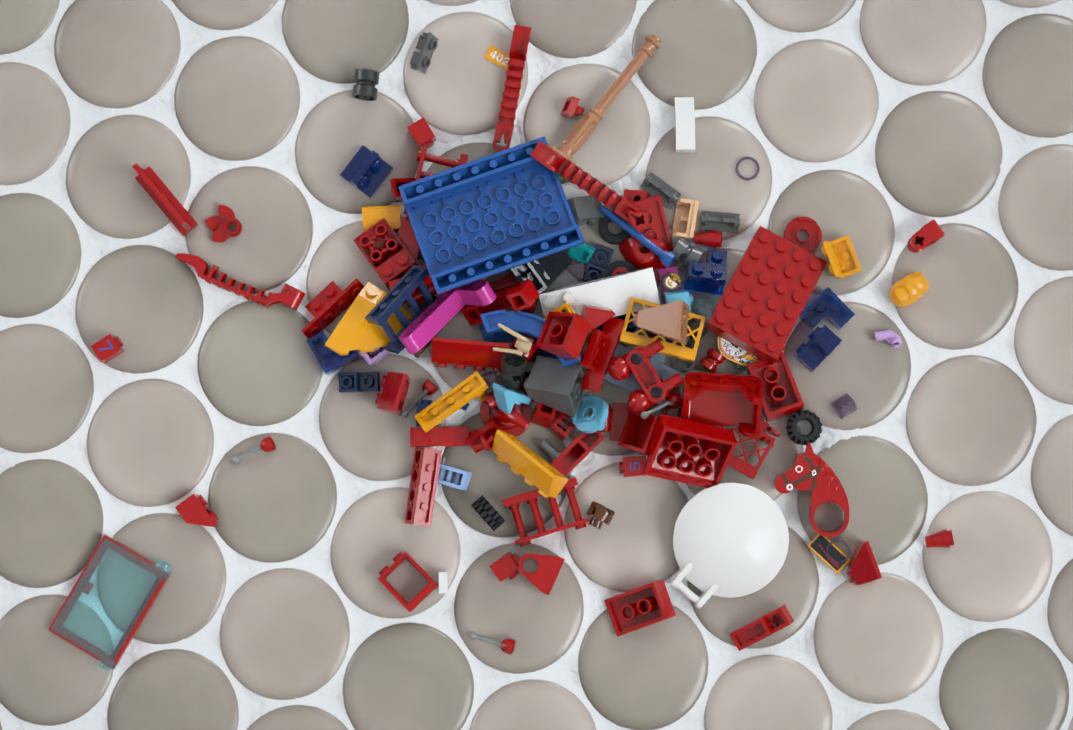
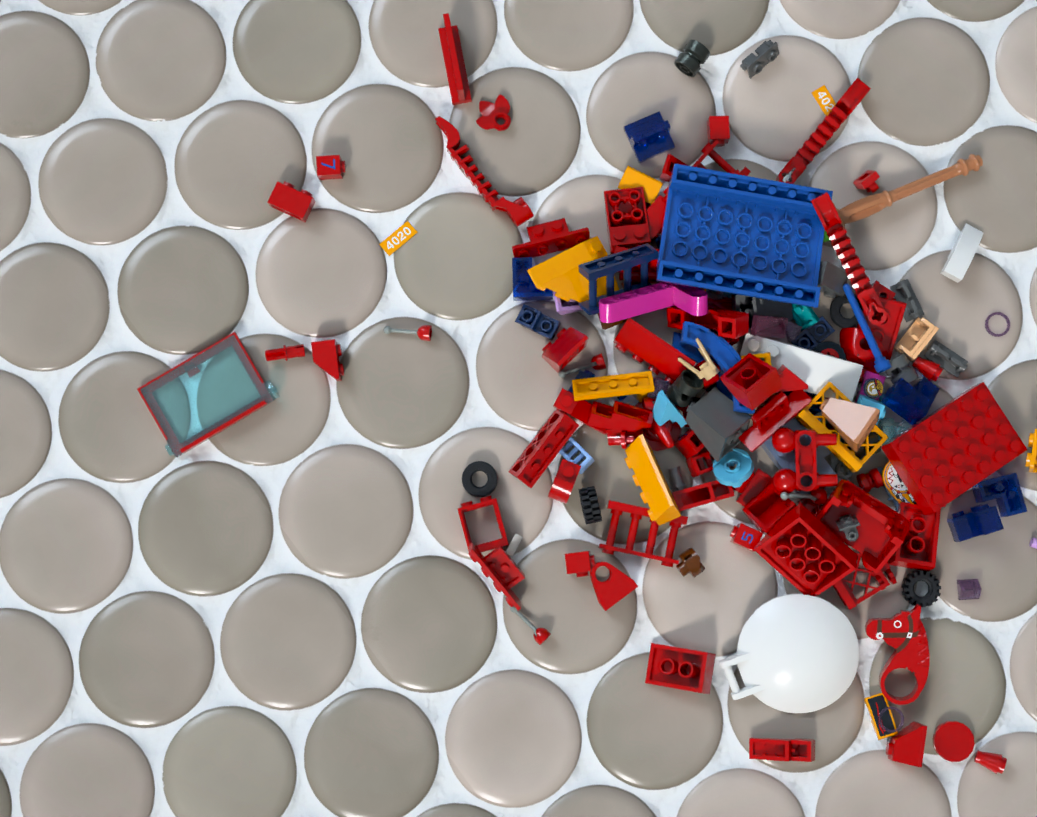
camera: 25 degrees right, 0 degrees up
(91, 395) = (291, 201): none -> red piece
(158, 527) = (285, 353): none -> red axle
(200, 376) = (398, 238): none -> light orange sticker
(371, 543) = (488, 487): none -> black tyre
(443, 610) = (501, 570): none -> red bracket
(455, 505) = (564, 481): none -> red brick
(471, 425) = (619, 416): none -> red slope
(555, 278) = (769, 326): none -> clear pink tile
(711, 410) = (848, 525): none -> dark grey hinge
(810, 227) = (1026, 409): red tile -> none
(900, 540) = (953, 741): none -> red tile

